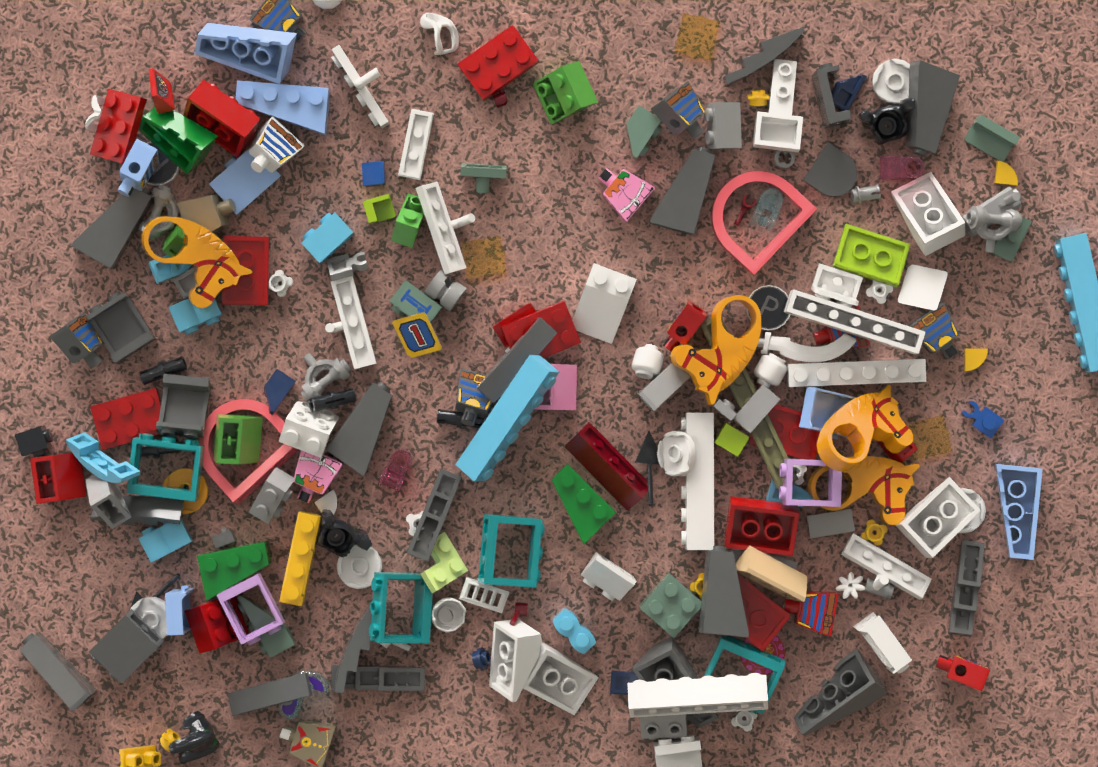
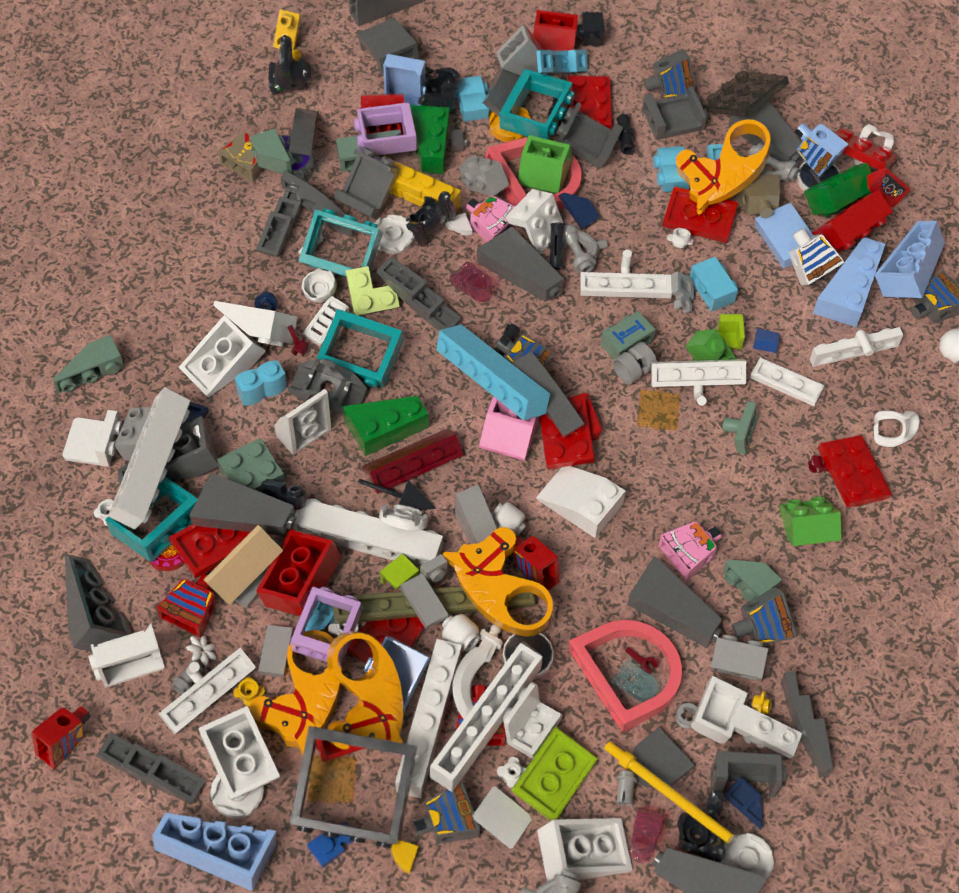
camera: 105 degrees right, 30 degrees down
(80, 260) = (744, 93): none -> clear smoke plate
(172, 572) = (441, 89): none -> black hair
(314, 715) = (270, 152): none -> sand green slope
(318, 607) = (368, 183): none -> dark grey panel
(417, 335) = (598, 328): sticker -> none
(563, 549) = (313, 373): none -> dark grey piece
(692, 571) = (295, 495): none -> black plate
(697, 36) = (842, 667): clear yellow piece -> none
(845, 196) = (629, 761): none -> yellow bar
(913, 419) = (333, 829): none -> window

